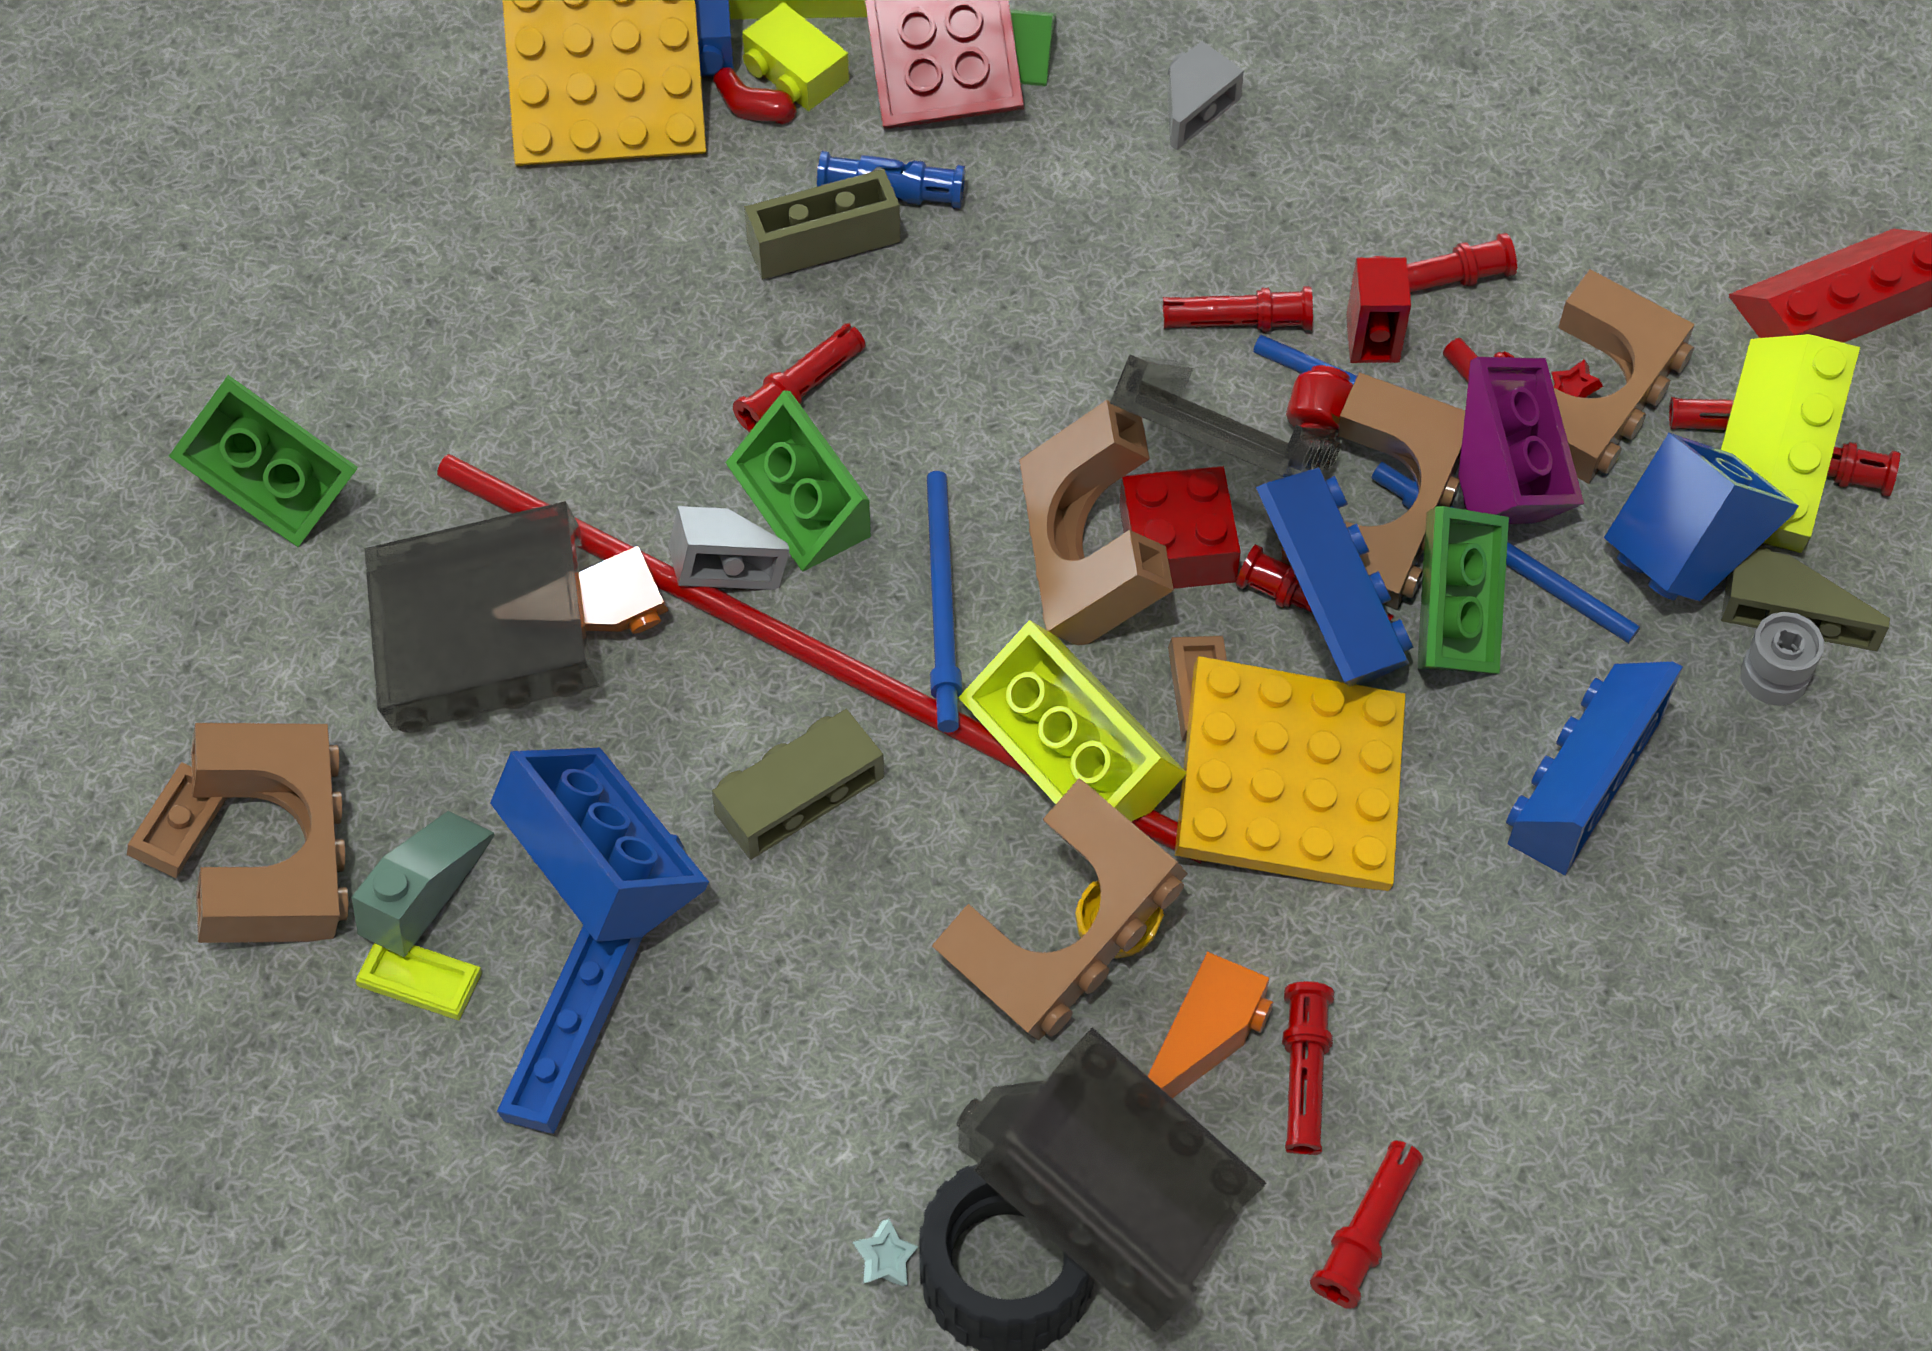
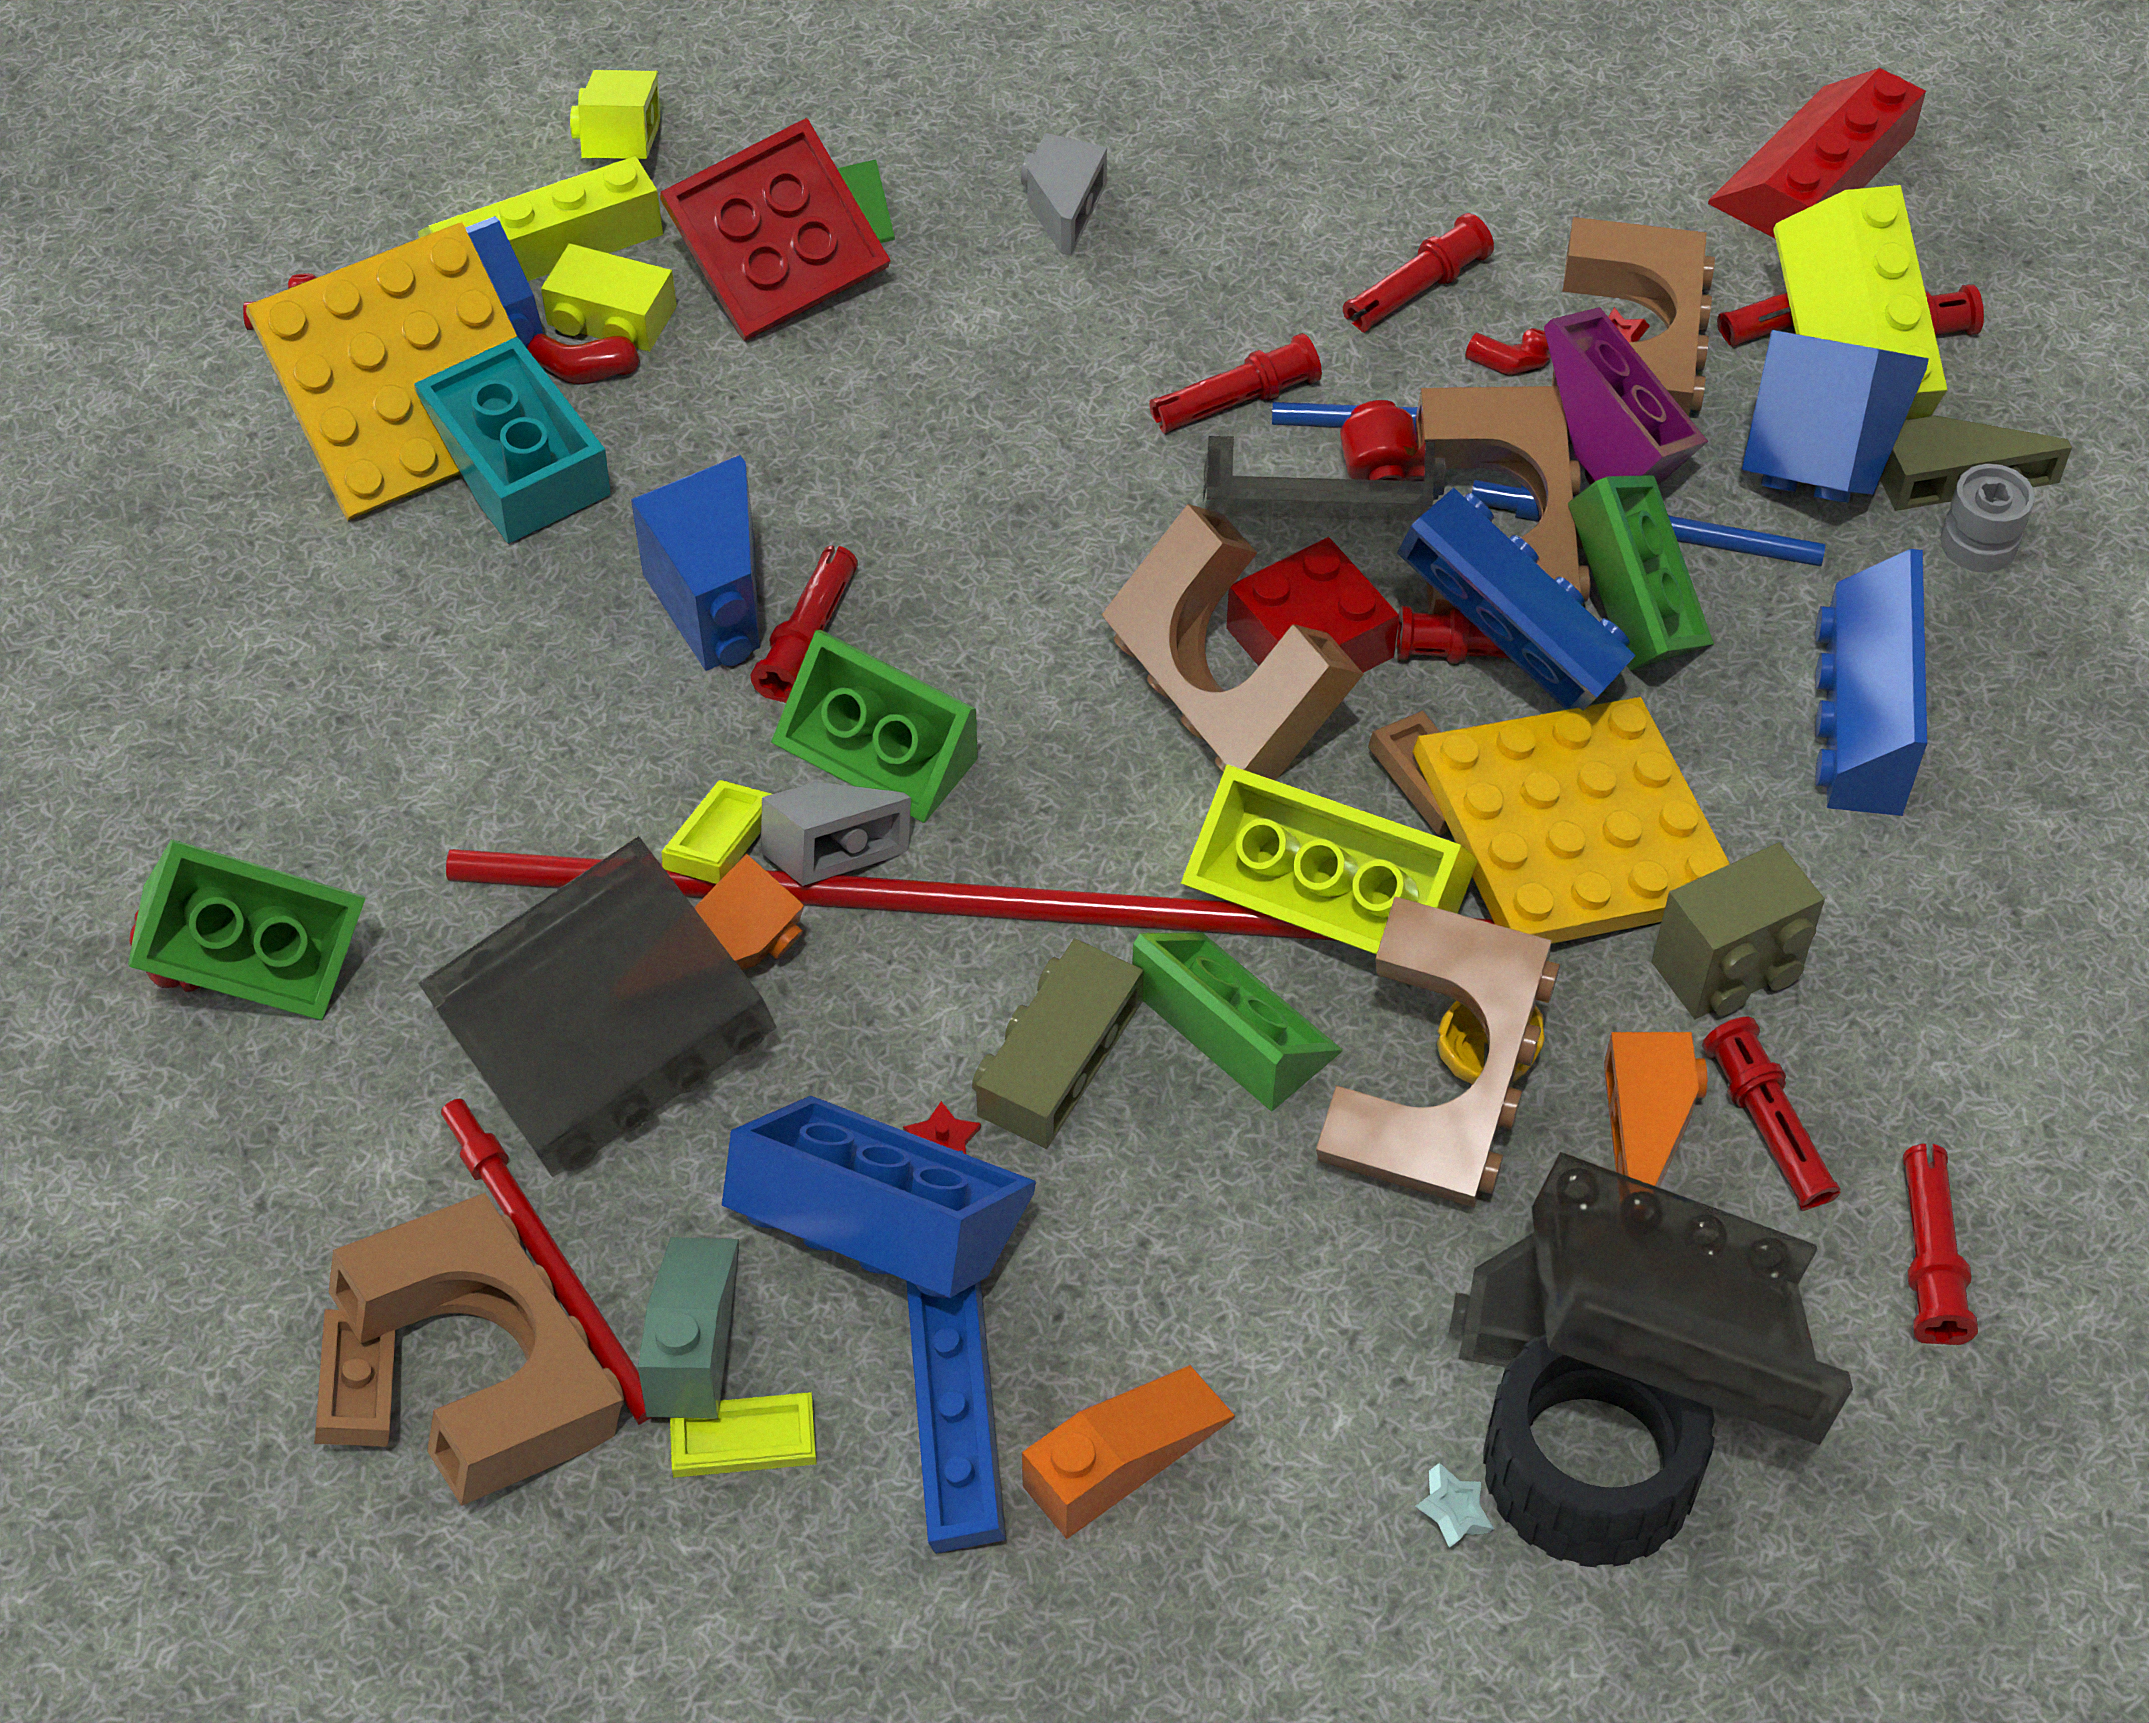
camera: 25 degrees left, 5 degrees down
(351, 700) = (488, 1160): none -> red bar
(640, 518) = (716, 833): none -> neon yellow tile
(657, 148) = (515, 439): none -> teal slope
(672, 1102) = (1119, 1447): none -> orange slope
(681, 817) = (945, 1129): none -> red piece
(747, 300) = (702, 560): none -> blue slope
(822, 223) = (771, 429): olive brick -> none
(910, 181) = (792, 382): blue piece -> none
(941, 813) = (1230, 1015): none -> bright green slope
(945, 677) = (1156, 865): blue bar -> none
(1354, 914) = (1737, 931): none -> olive brick
(1378, 309) = (1389, 328): red brick -> none

